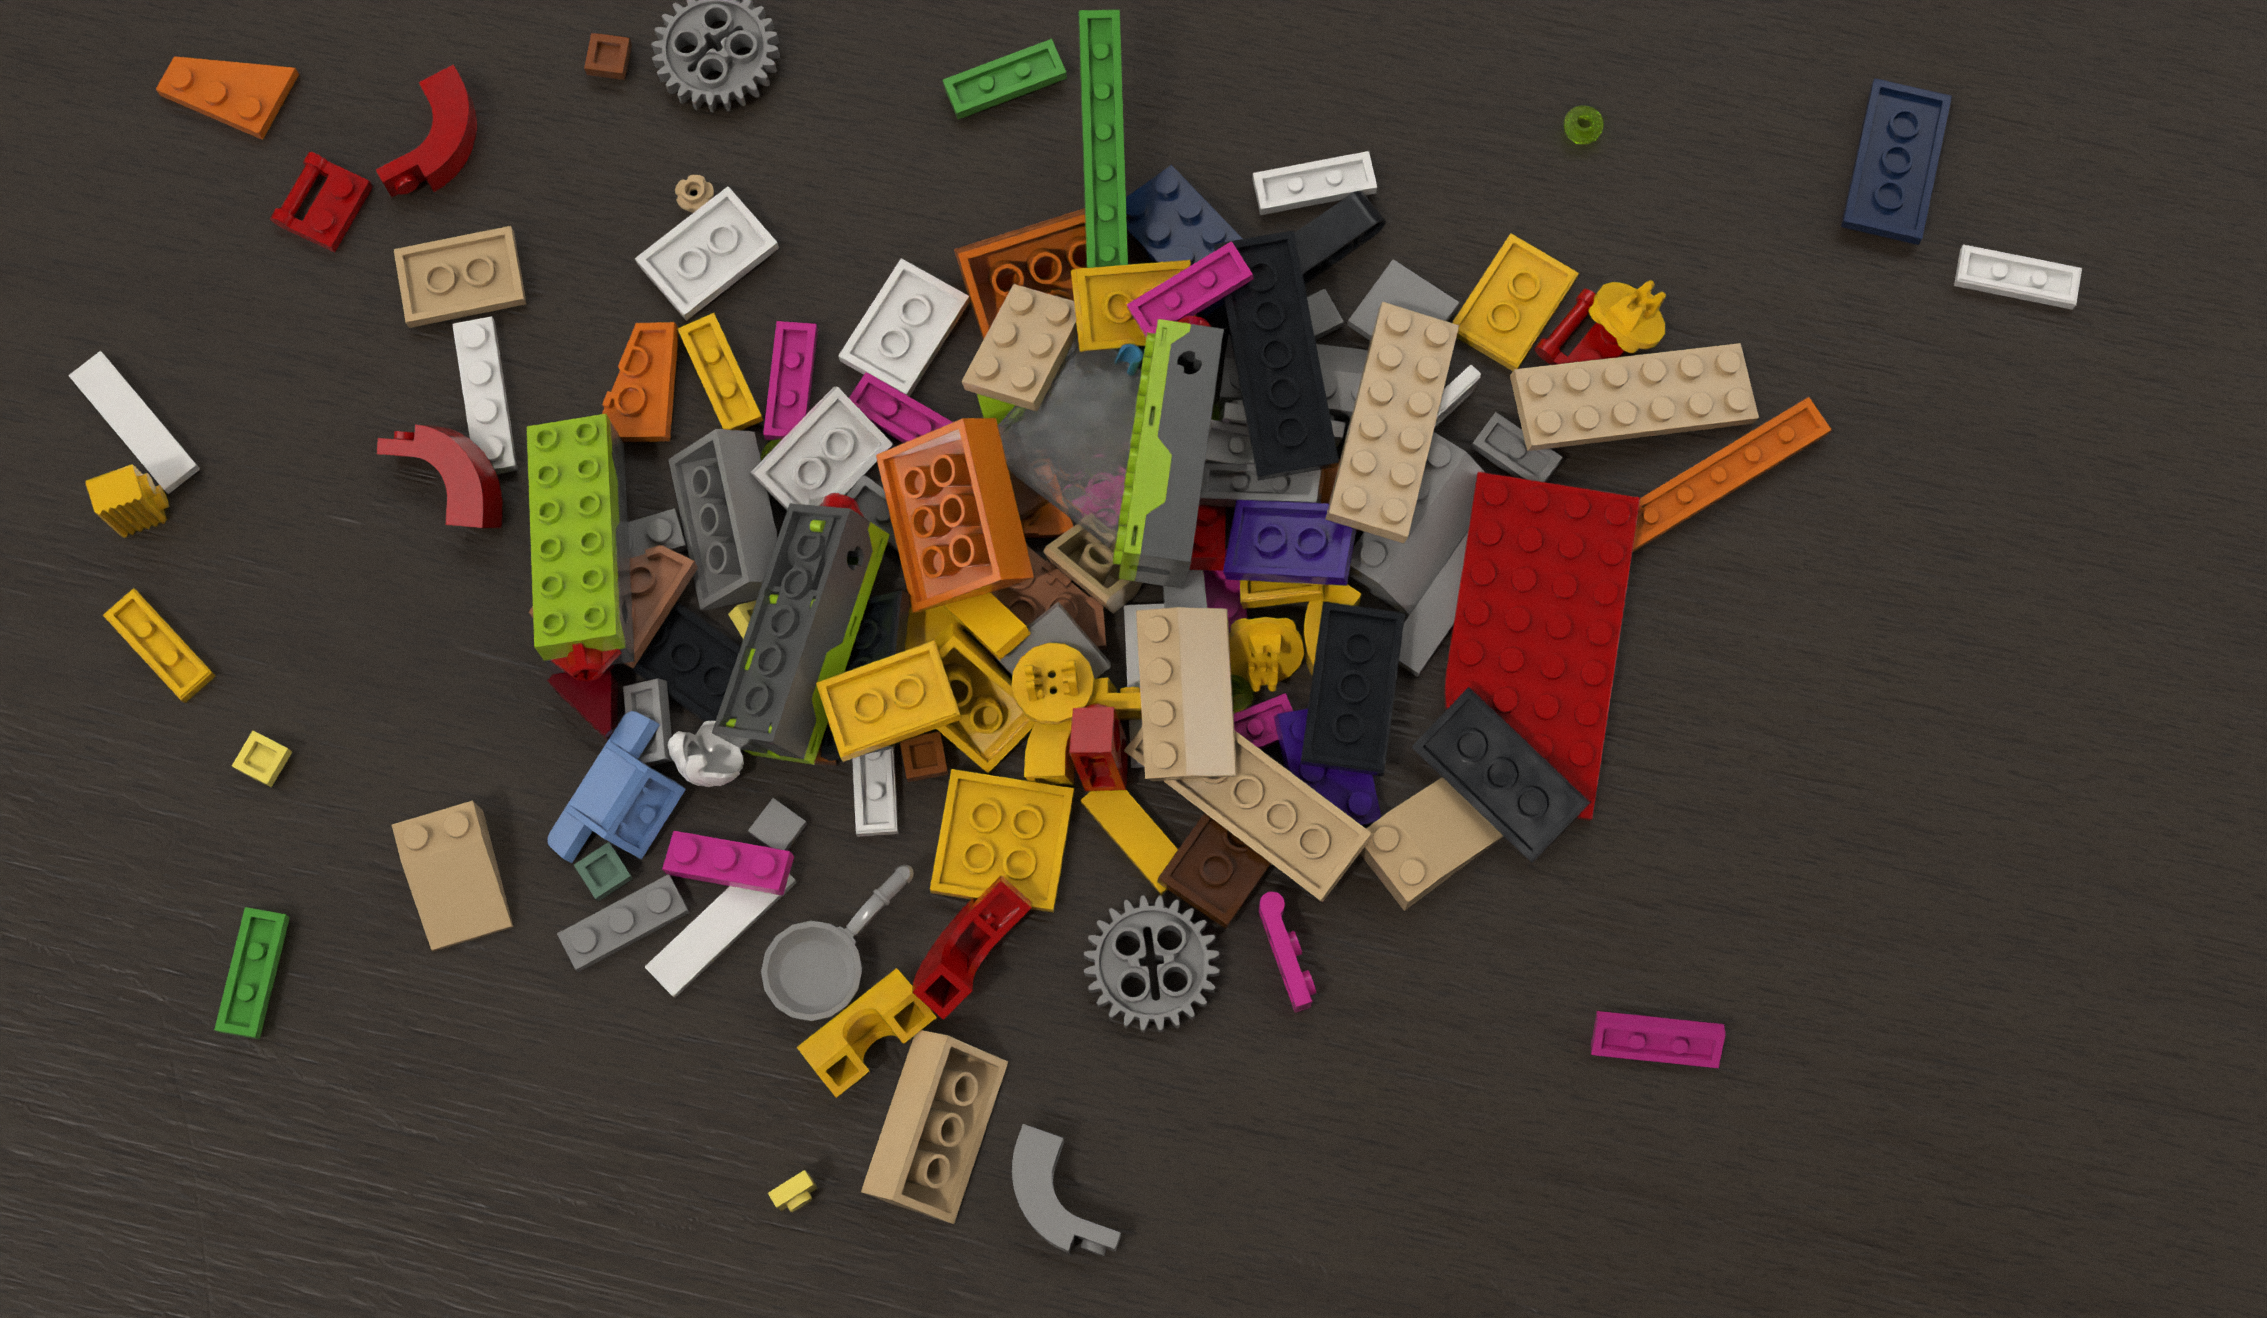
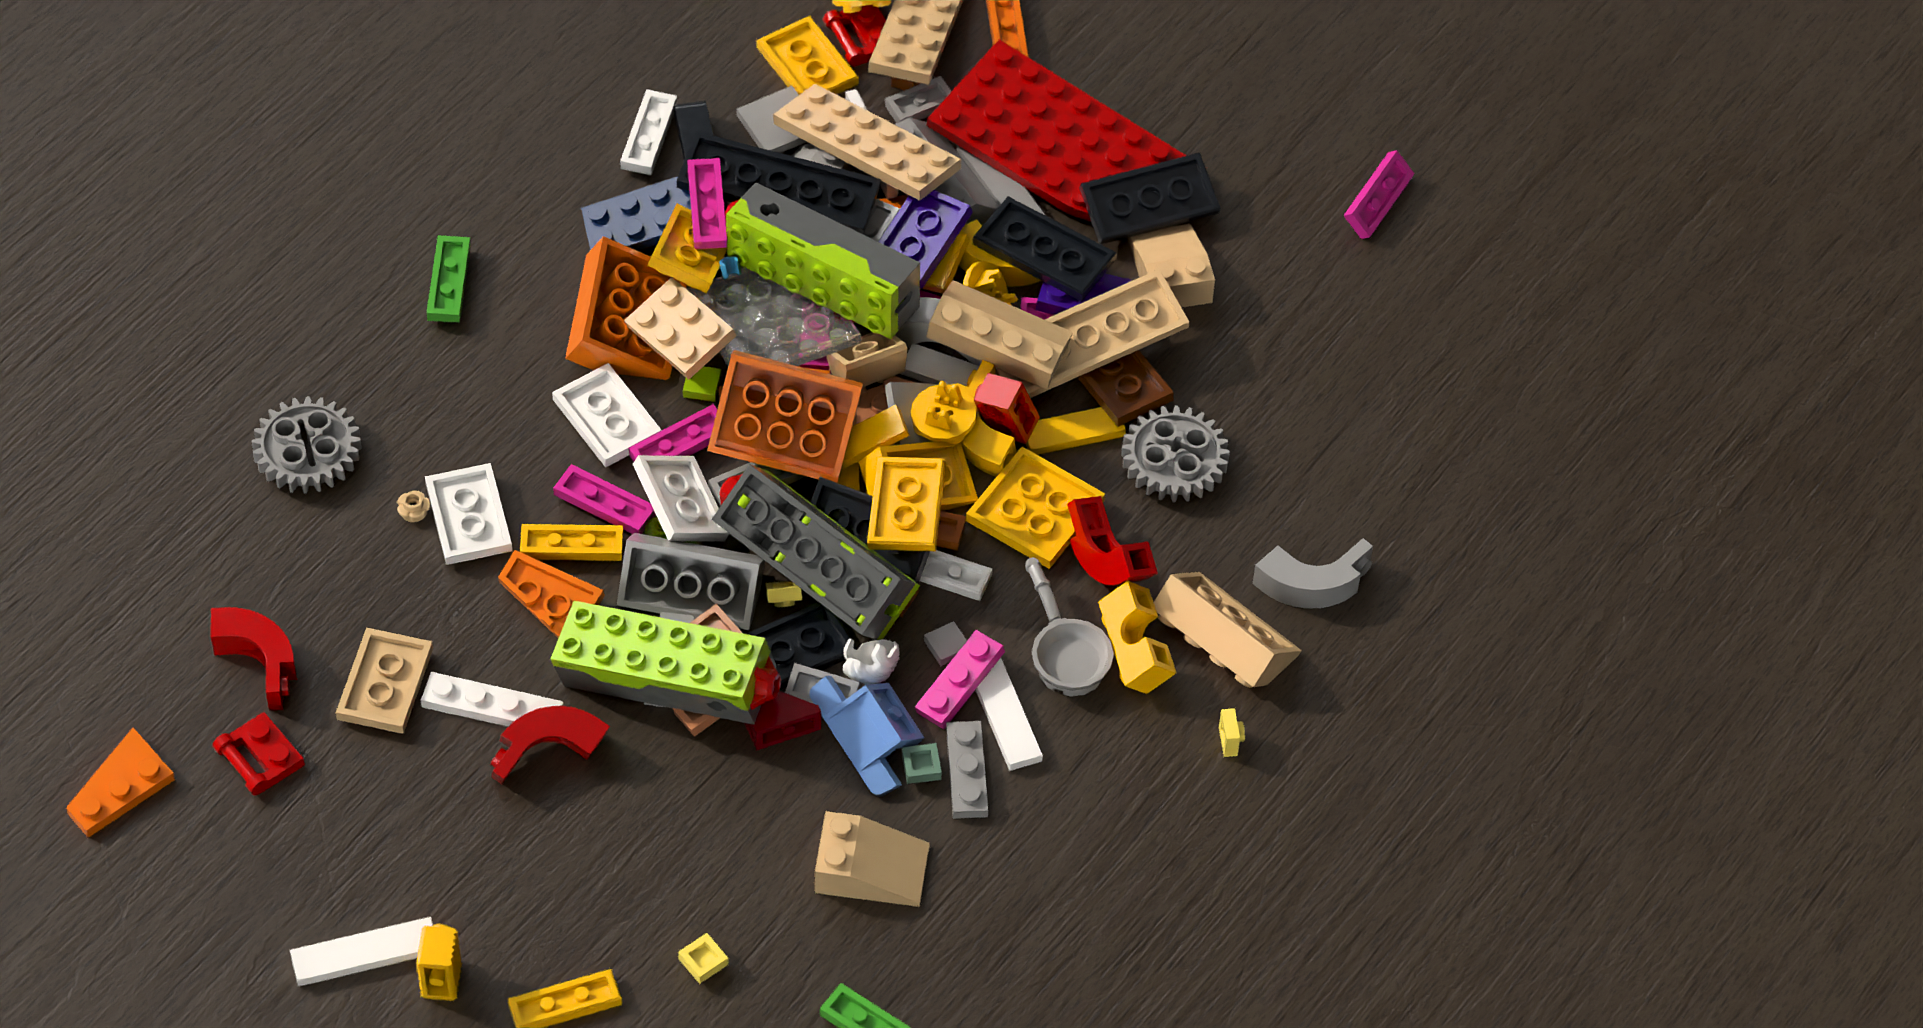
camera: 70 degrees left, 20 degrees down
(608, 56) = (264, 516): dark orange plate -> none
(1103, 138) = (562, 210): bright green plate -> none
(1285, 949) = (1207, 373): dark pink plate -> none

